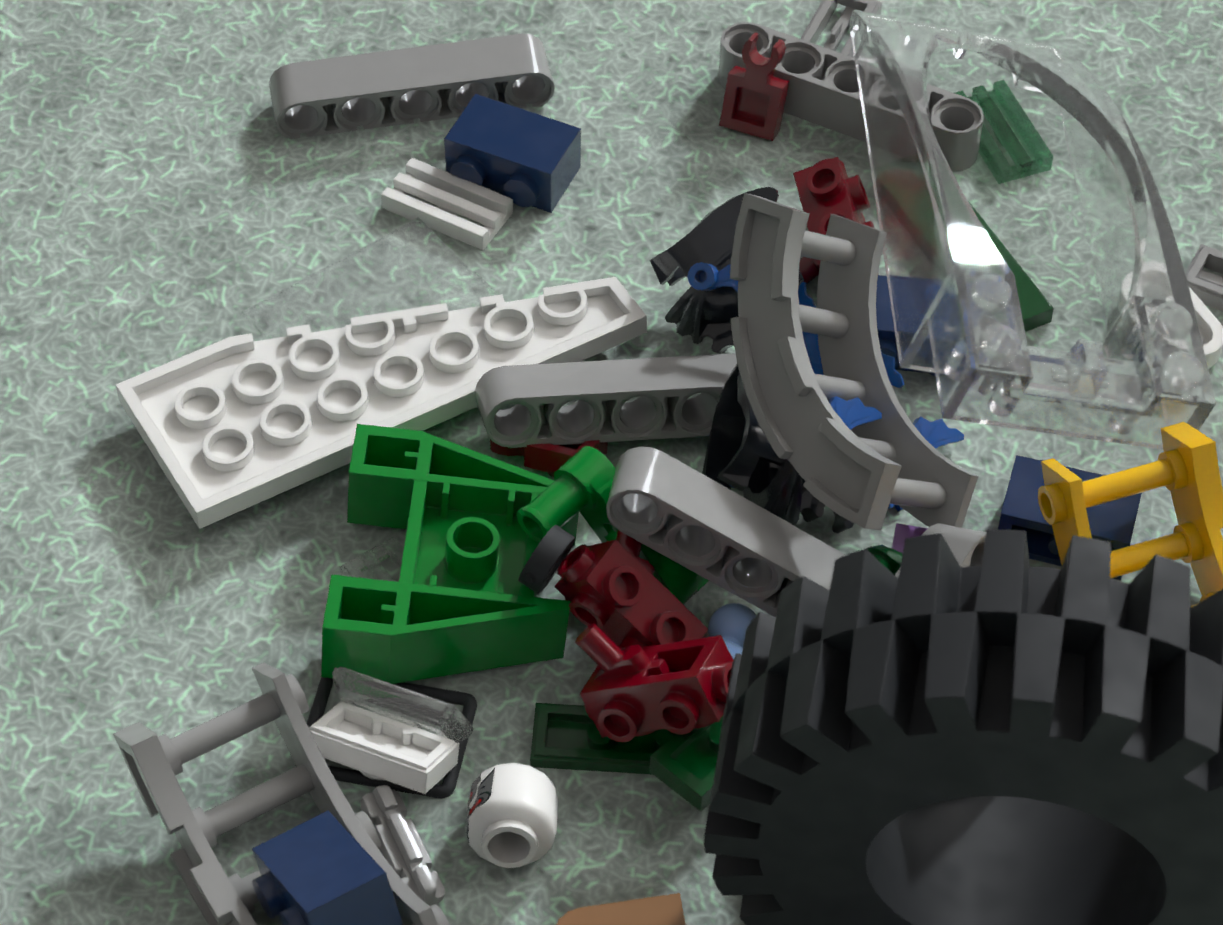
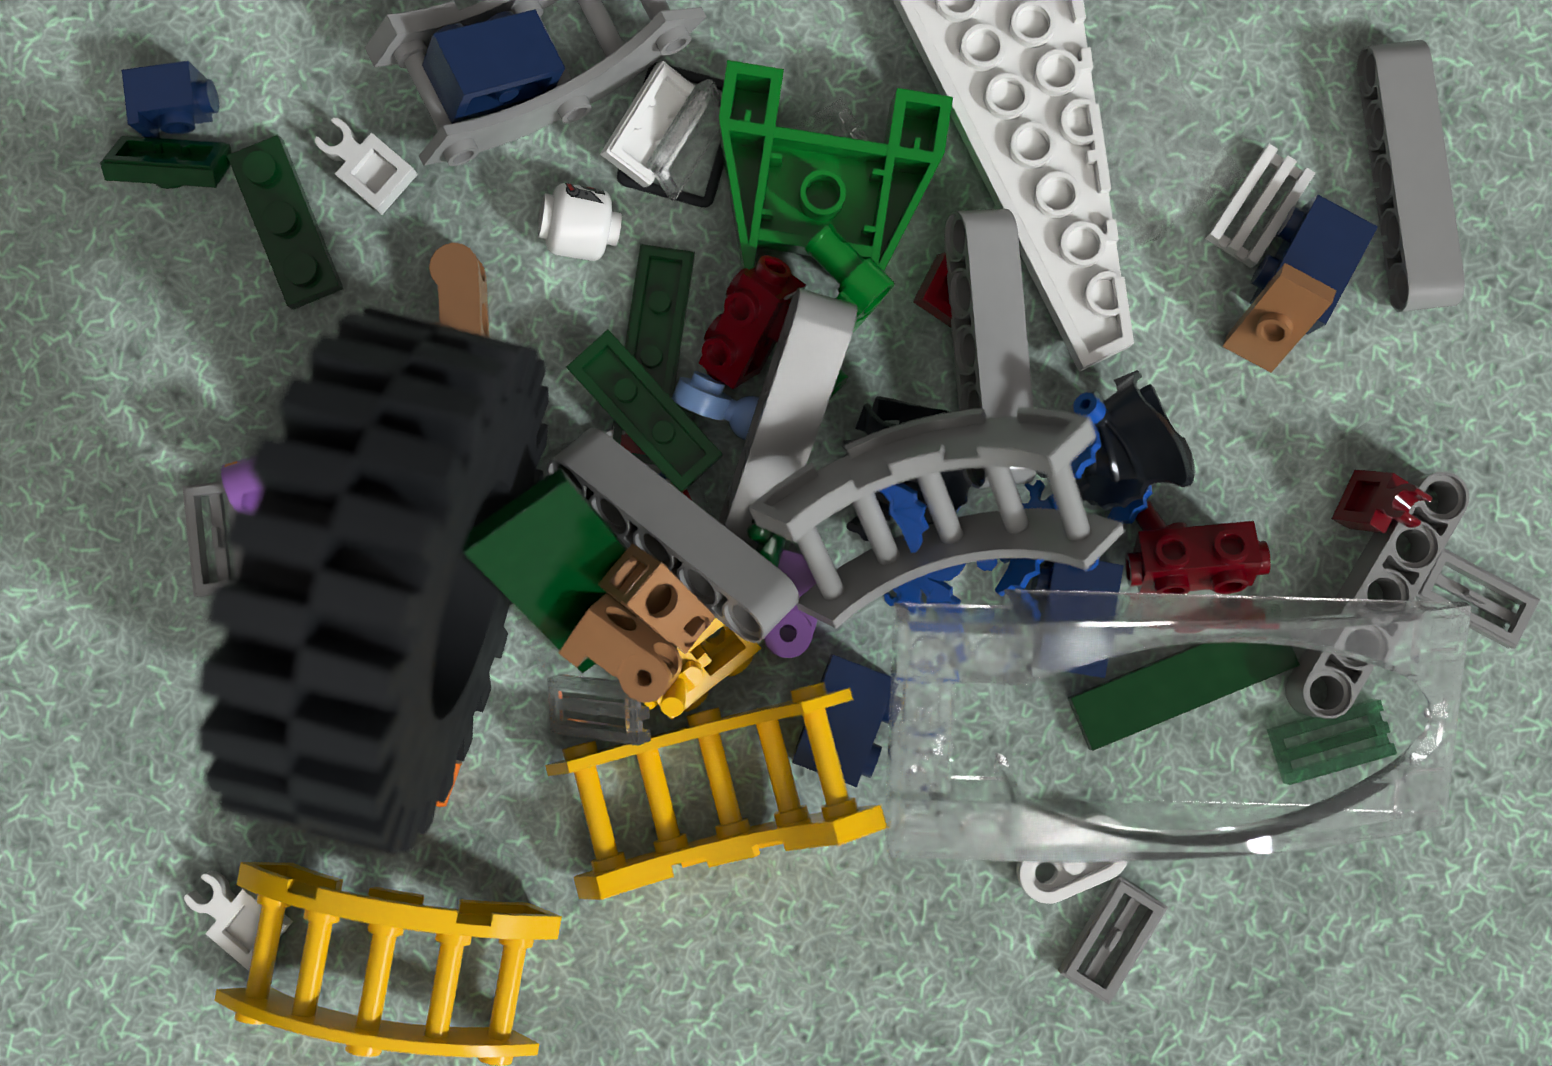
camera: 95 degrees right, 35 degrees up
(402, 843) = (563, 140): light grey axle -> none
(546, 559) = (776, 245): black piece -> none
(577, 165) = (1279, 317): none -> medium nougat plate
(654, 686) = (662, 335): dark red brick -> none

